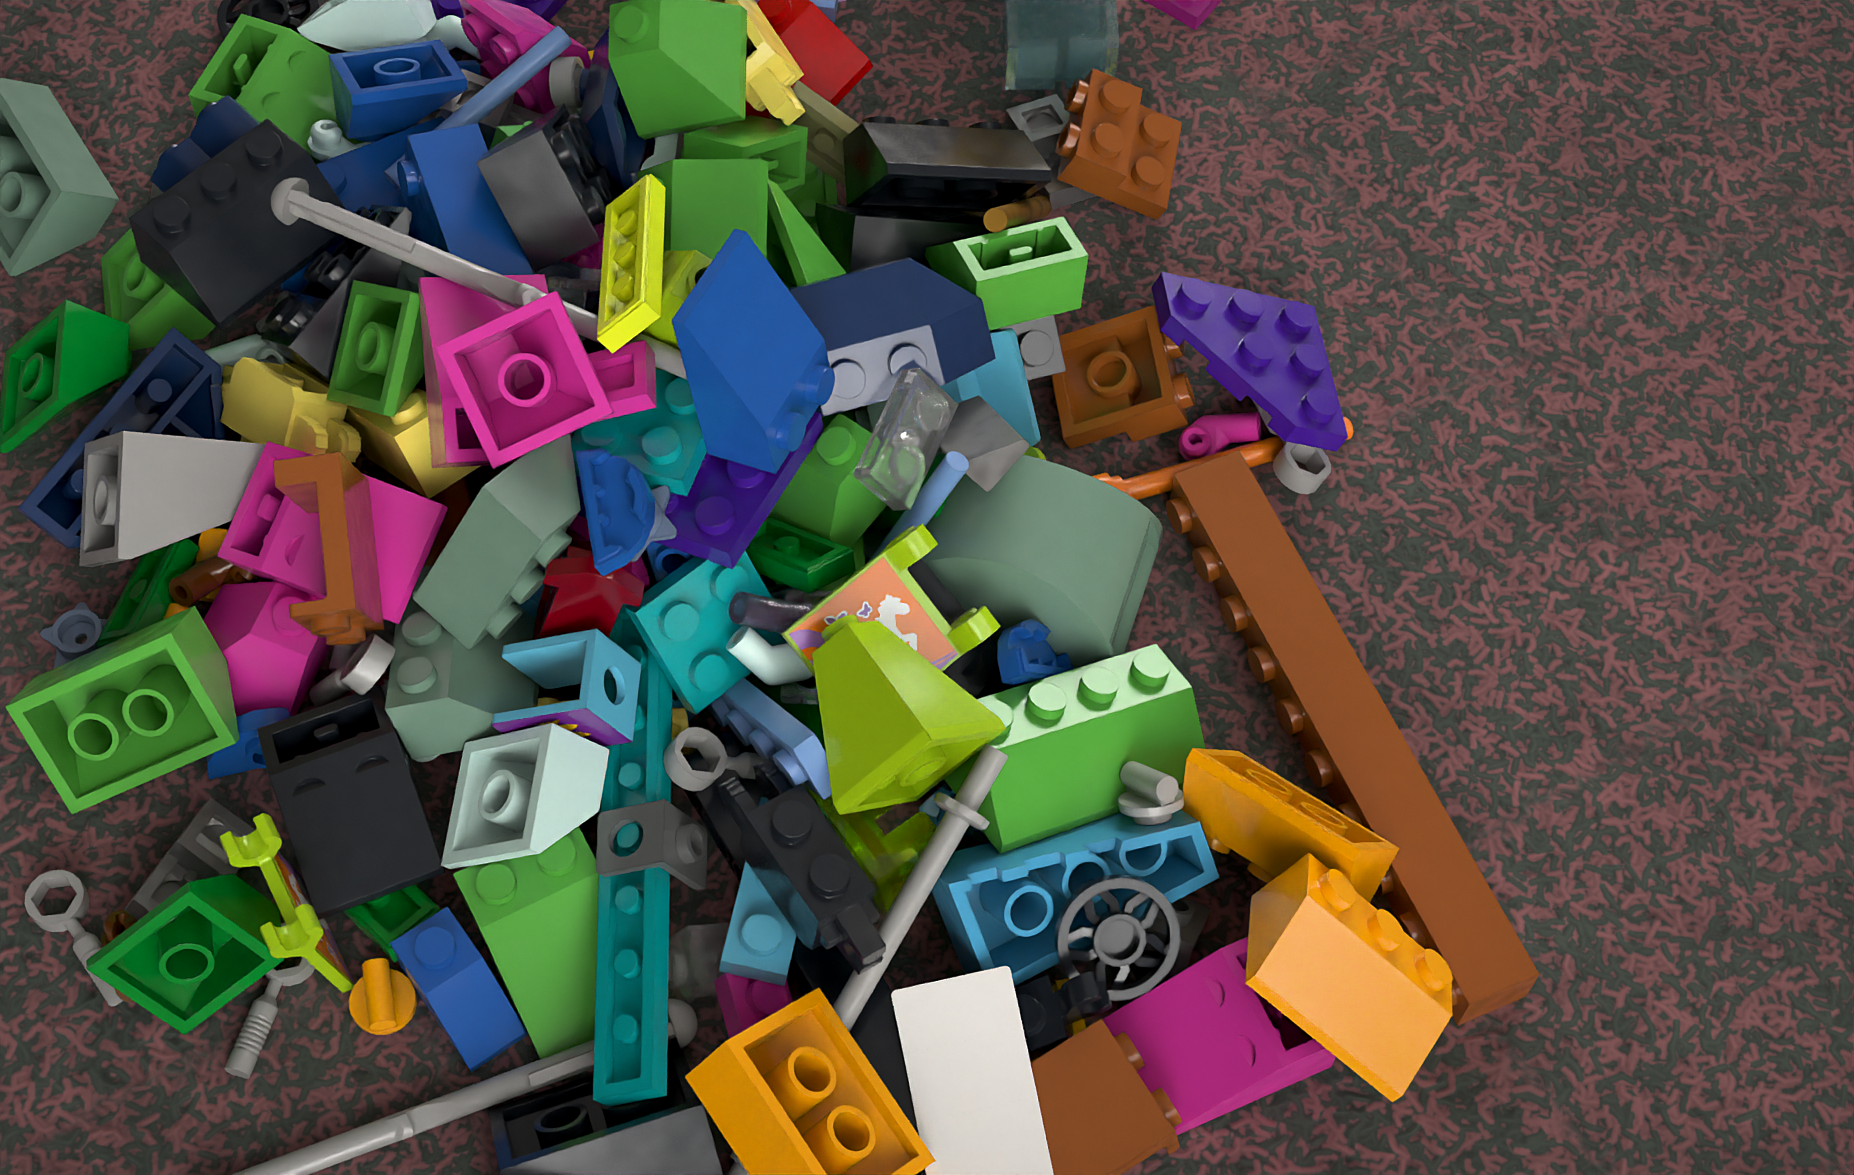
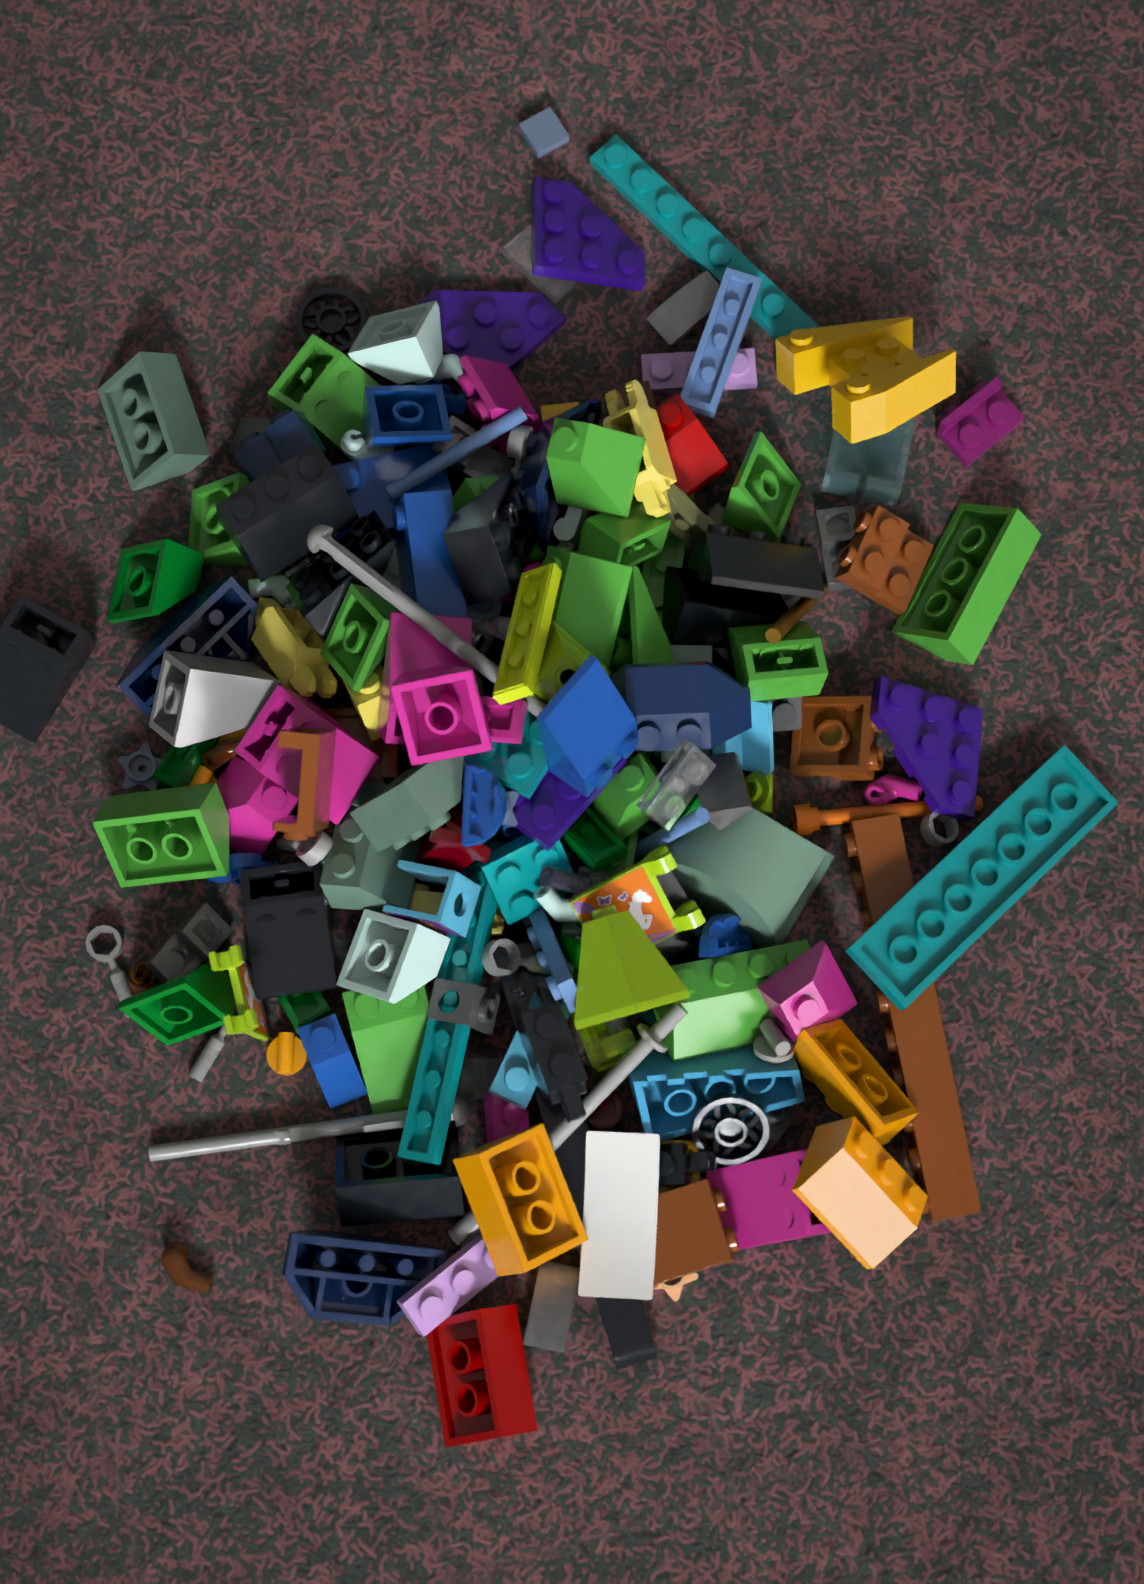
camera: 15 degrees right, 15 degrees up
(912, 964) = (607, 1113): none -> dark red tile
(922, 81) = (762, 491): none -> bright green slope
(1178, 706) = (807, 992): none -> dark pink slope
(1243, 153) = (968, 581): none -> bright green slope
(1381, 514) = (981, 878): none -> teal plate

